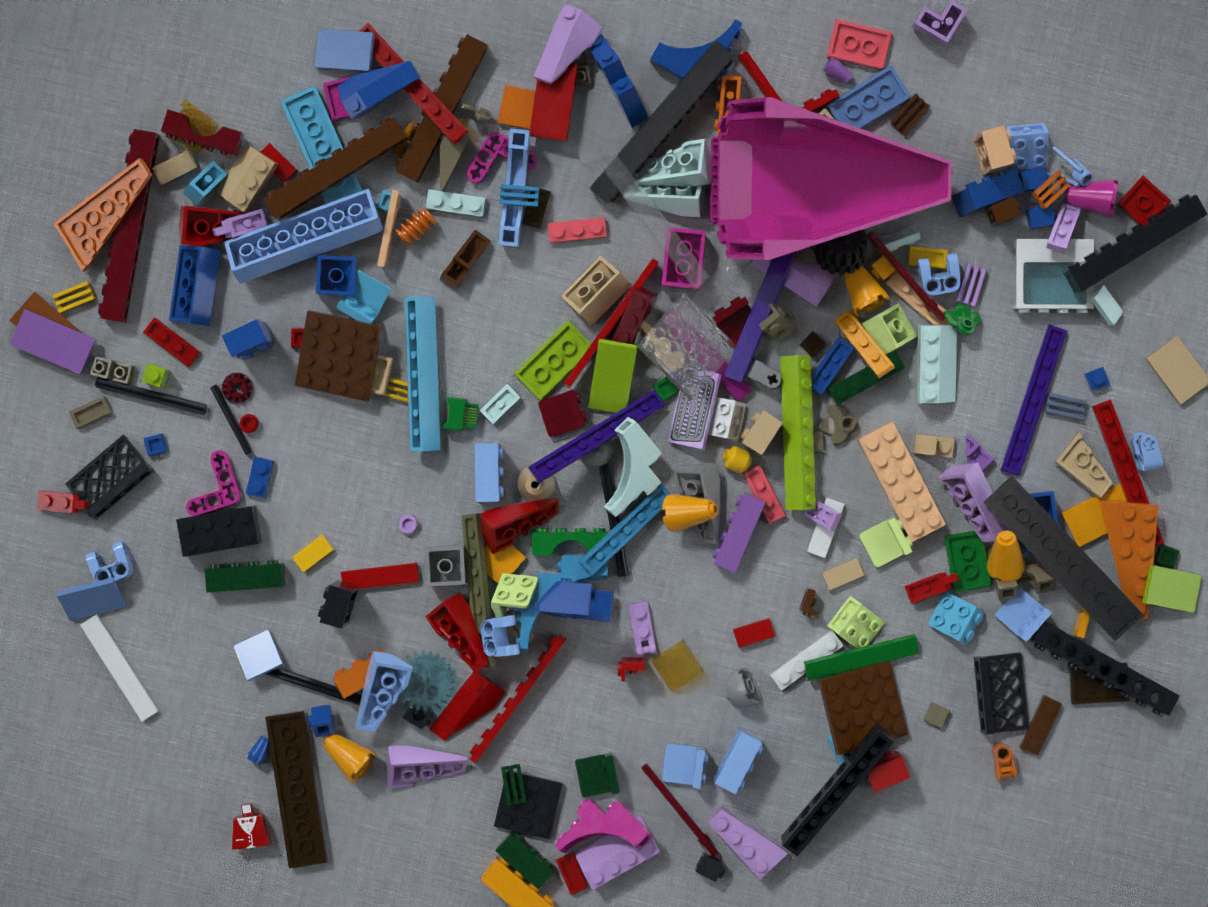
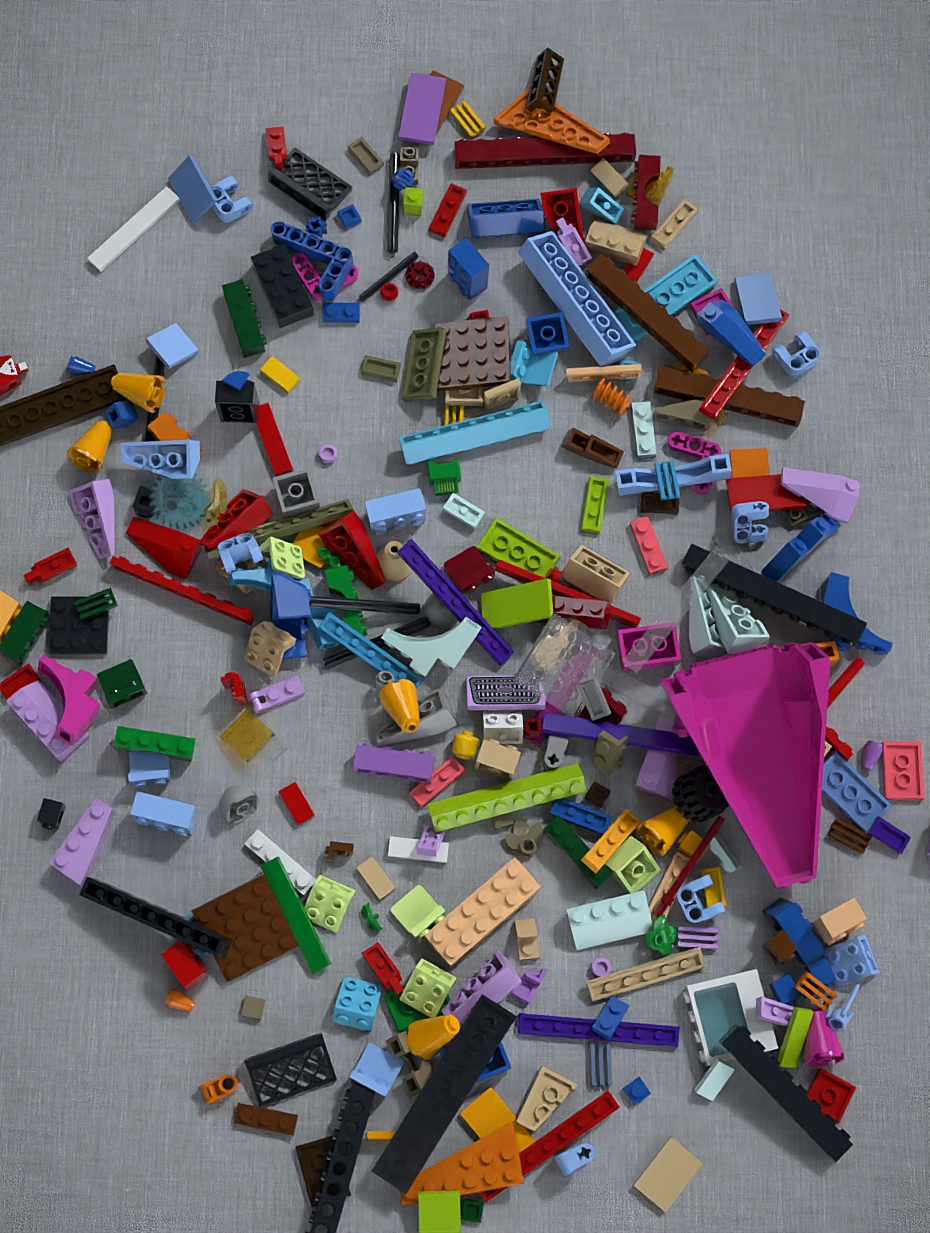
camera: 70 degrees right, 15 degrees down
(48, 210) = (542, 77): none -> dark brown fence
(131, 381) = (403, 179): none -> blue gear
(157, 483) = (316, 227): none -> blue gear
(192, 486) = (318, 253): none -> blue beam
(240, 113) = (674, 224): none -> tan tile
(302, 697) = (141, 389): none -> light orange cone
(324, 602) = (236, 379): none -> blue tile
(329, 450) = (380, 368): none -> olive tile
(337, 407) = (423, 364): none -> olive tile
(390, 338) = (501, 394): none -> tan tile
(419, 24) = (800, 359): none -> light blue piece
(436, 643) = (219, 501): none -> clear yellow piece
(463, 819) = (51, 567): none -> red hinge
(481, 115) = (732, 433): dark tan plate -> none
(522, 272) = (594, 505): none -> lime tile
(523, 544) = (324, 554): none -> green piece
(577, 524) = (364, 605): none -> black axle
(579, 127) = (742, 522): none -> light blue piece
(588, 332) = (553, 574): none -> red plate
(596, 629) = (267, 647): none -> tan bracket
(657, 524) = (381, 680): none -> light grey cone
(665, 388) = (515, 661): green tile -> none
(667, 756) = (148, 741): none -> green arch
(703, 839) = (78, 801): dark red bar -> none
(724, 325) = (594, 699): none -> light grey tile
(731, 389) = (531, 722): none -> dark red bush
(885, 587) = (372, 924): none -> green piece
(914, 784) = (177, 1000): none -> orange cone
(918, 76) = (889, 835): none -> dark purple tile
(959, 549) = (427, 988): none -> yellowish green bracket
(977, 382) = (601, 967): none -> lavender tile
(993, 343) = (645, 974): none -> tan tile
(1026, 386) = (610, 1017): none -> blue plate
(1087, 220) = (795, 1037): none -> lime tile

